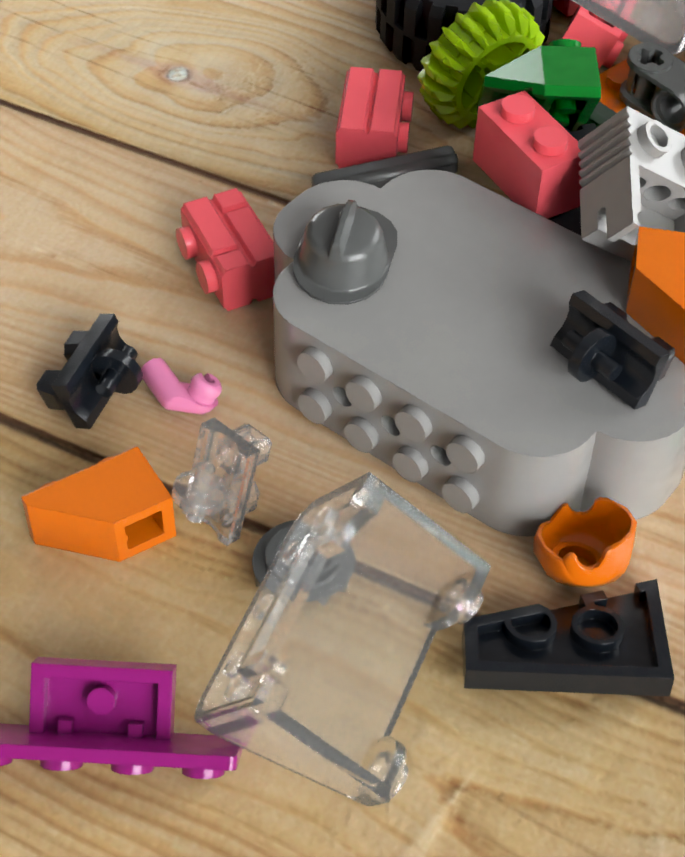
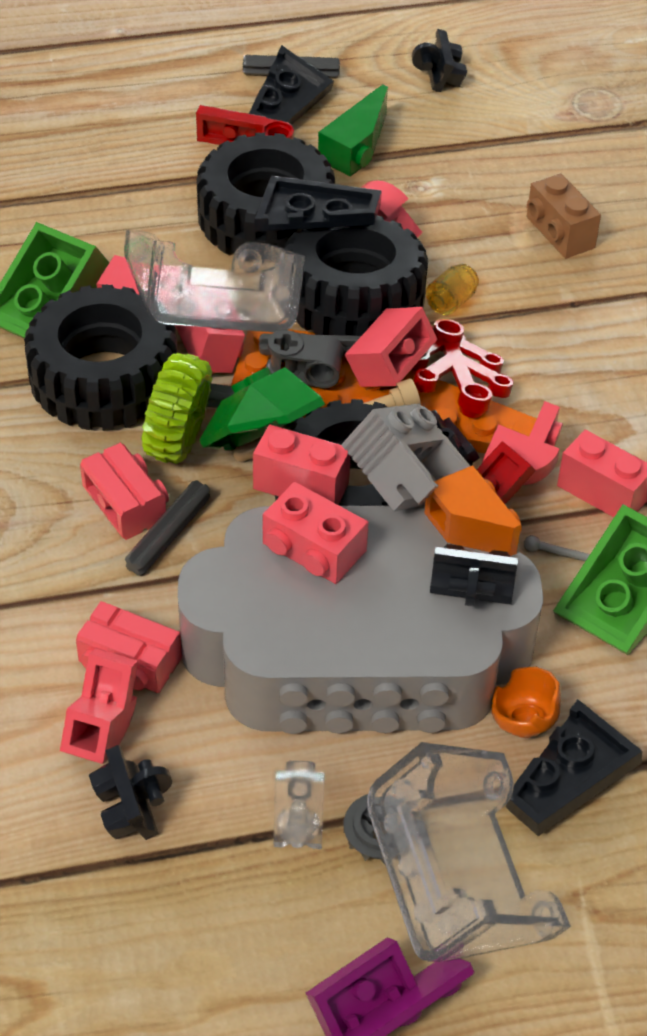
camera: 40 degrees left, 0 degrees up
(103, 510) = (238, 877): orange slope -> none
(145, 288) = (104, 709): none -> coral brick
(193, 397) = (199, 771): bright pink arm -> none
(344, 253) = (252, 607): dark grey piece -> none
(474, 216) = (315, 532): none -> coral brick

